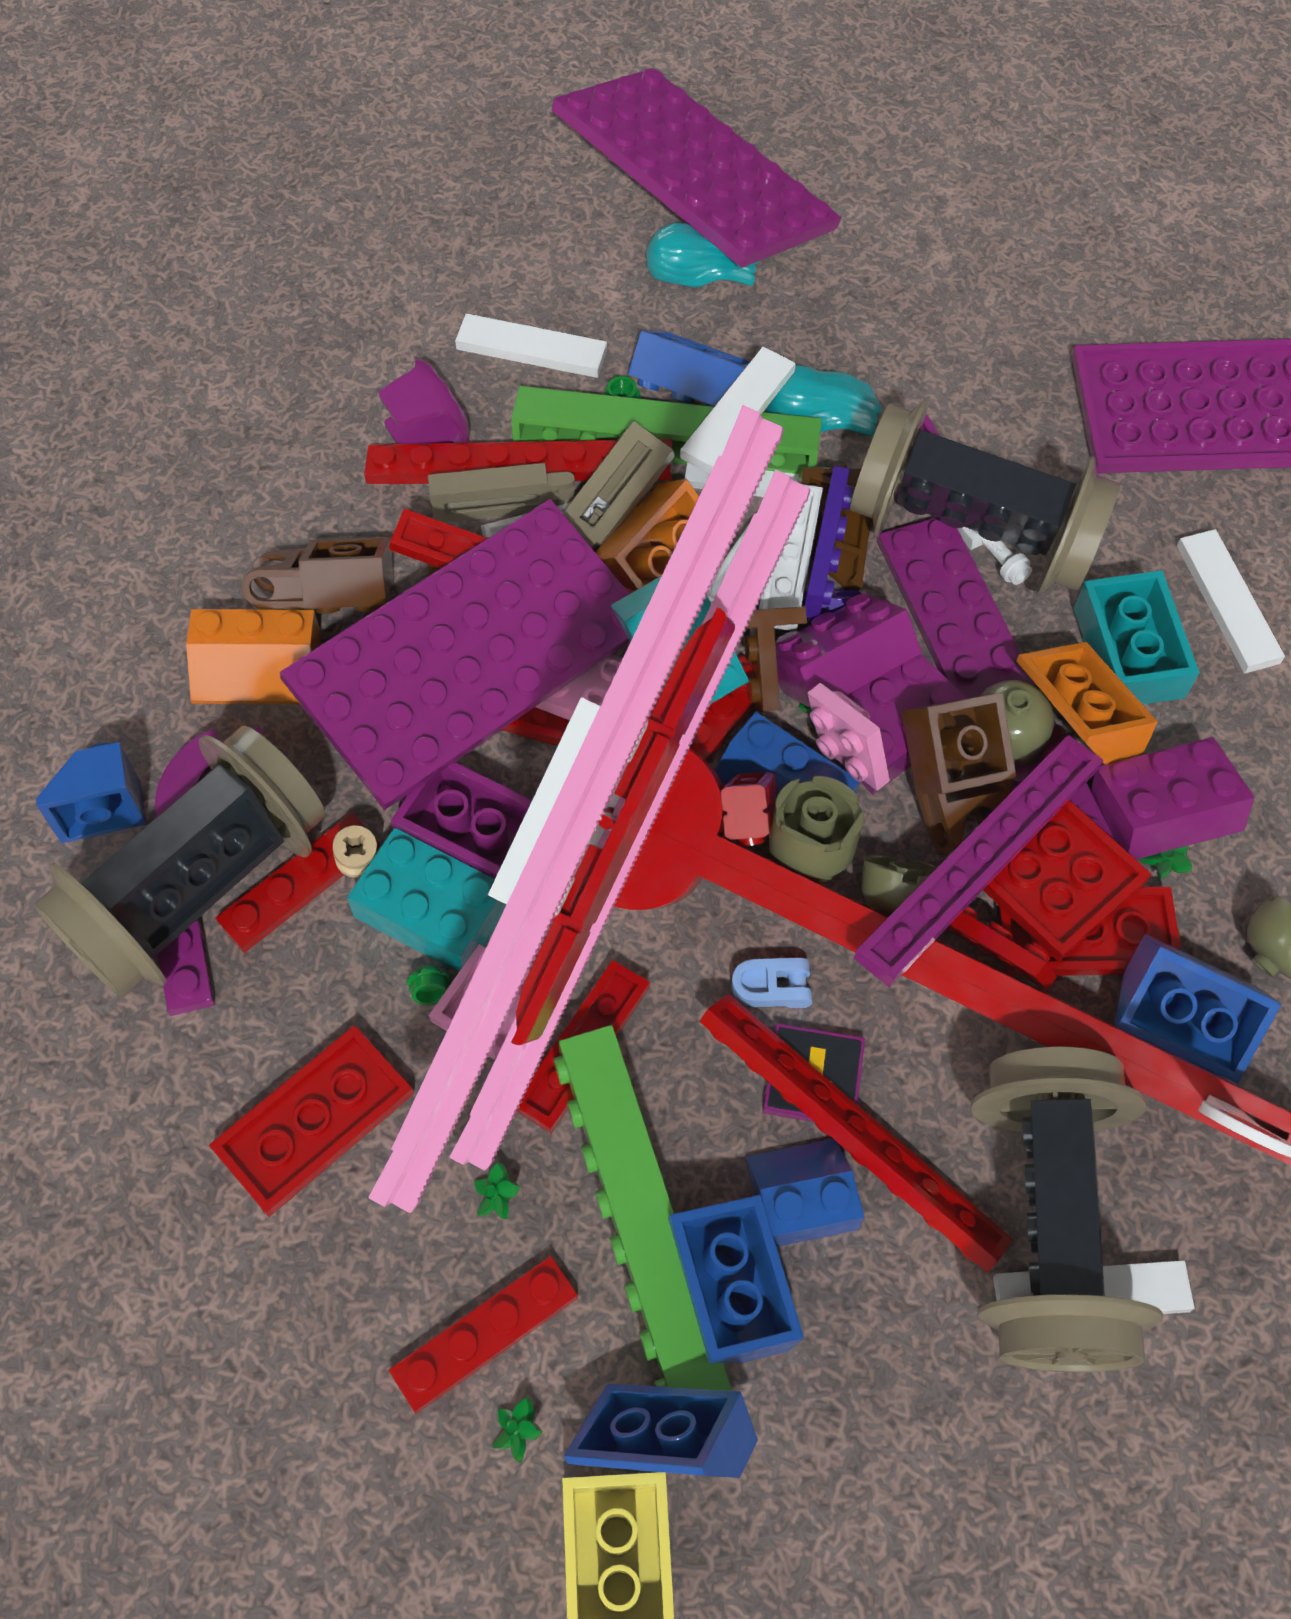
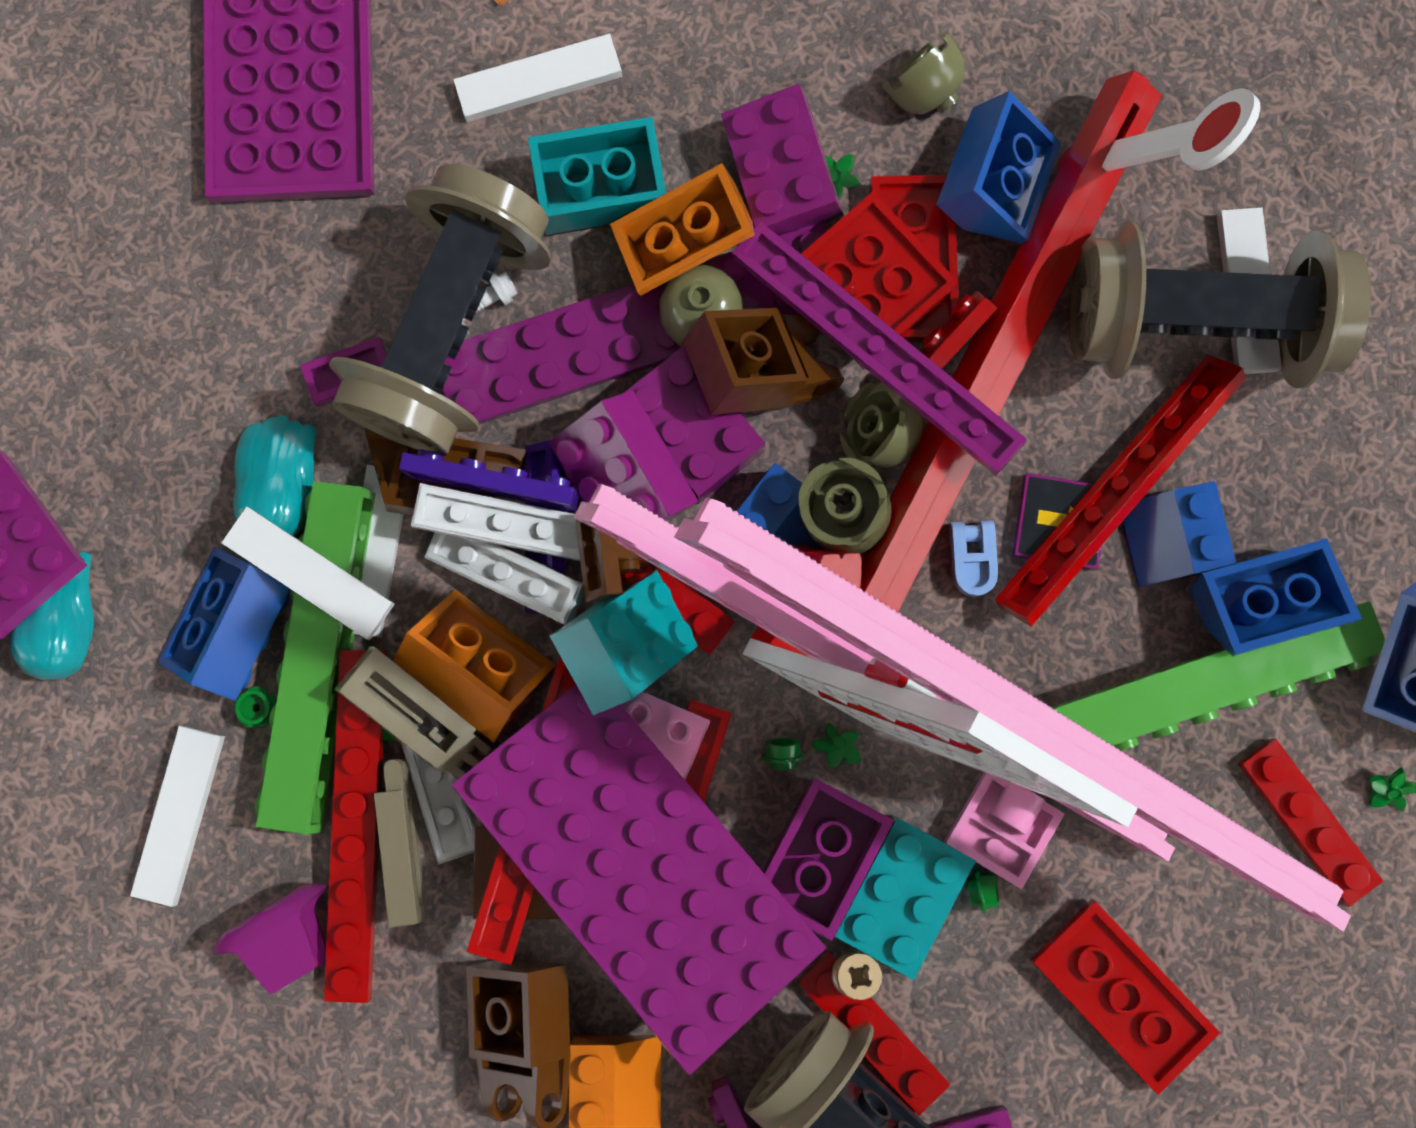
camera: 90 degrees left, 20 degrees up
(848, 736) = (727, 479): bright pink plate -> none

